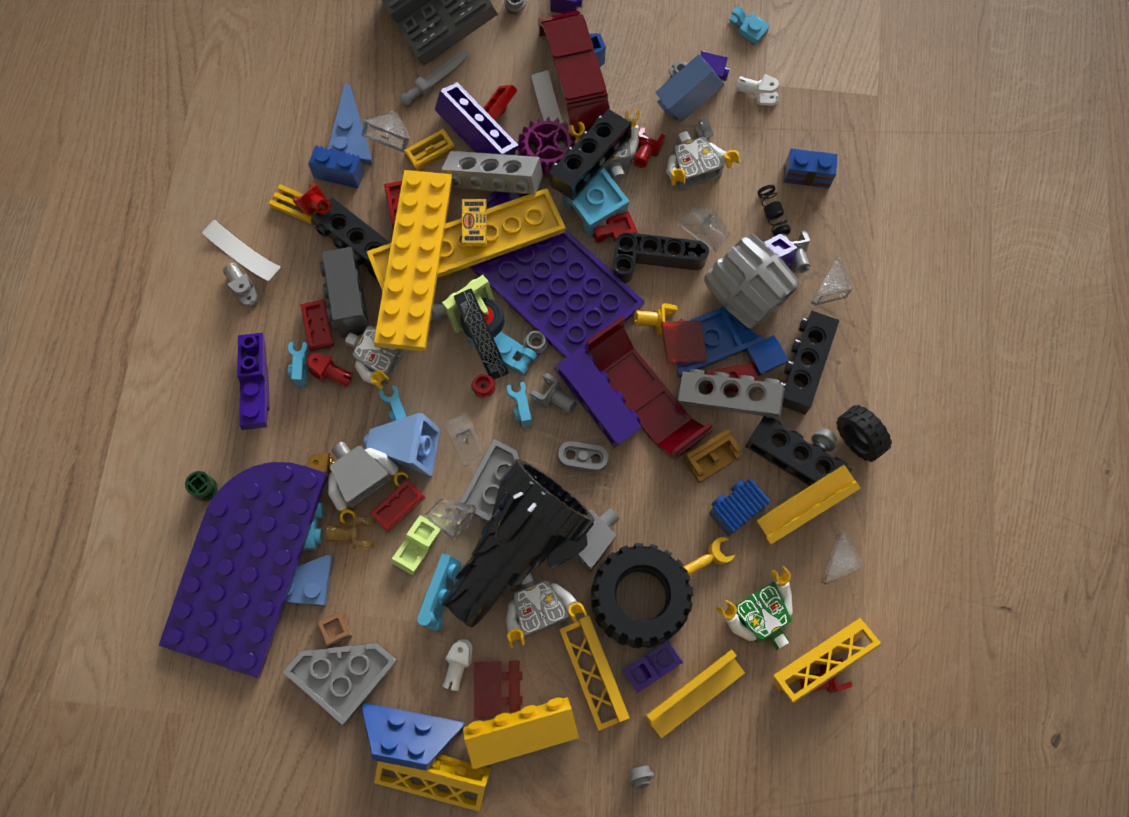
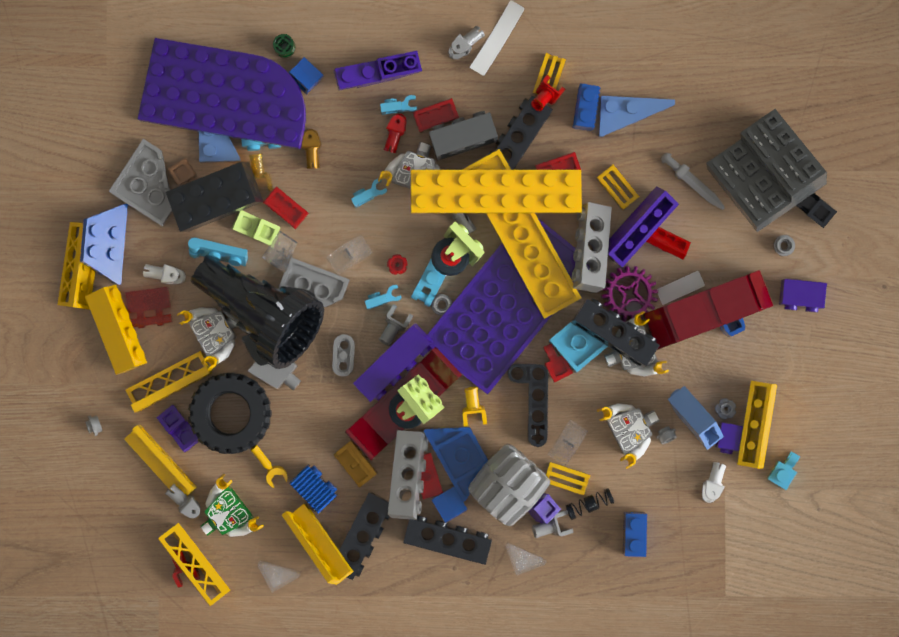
camera: 90 degrees right, 15 degrees up
(239, 461) = (306, 75): none -> blue piece
(358, 475) = (303, 173): light grey torso -> none
(370, 587) = (214, 196): none -> black brick
(387, 130) = (628, 147): clear slope -> none
(407, 442) = (334, 207): light blue slope -> none
(474, 223) = (536, 238): tile -> none
(480, 334) = (436, 255): black sticker -> none
(646, 148) = (639, 383): red piece -> none
(650, 380) = (414, 404): none -> yellowish green plate
(684, 342) = (451, 431): clear red piece -> none
(698, 37) = (757, 424): none -> yellow brick
(749, 664) = (186, 503): none -> light grey piece
(750, 217) = (584, 484): none -> yellow tile
(825, 439) = (379, 557): light grey plate -> none
(864, 433) = (384, 588): black tyre -> none

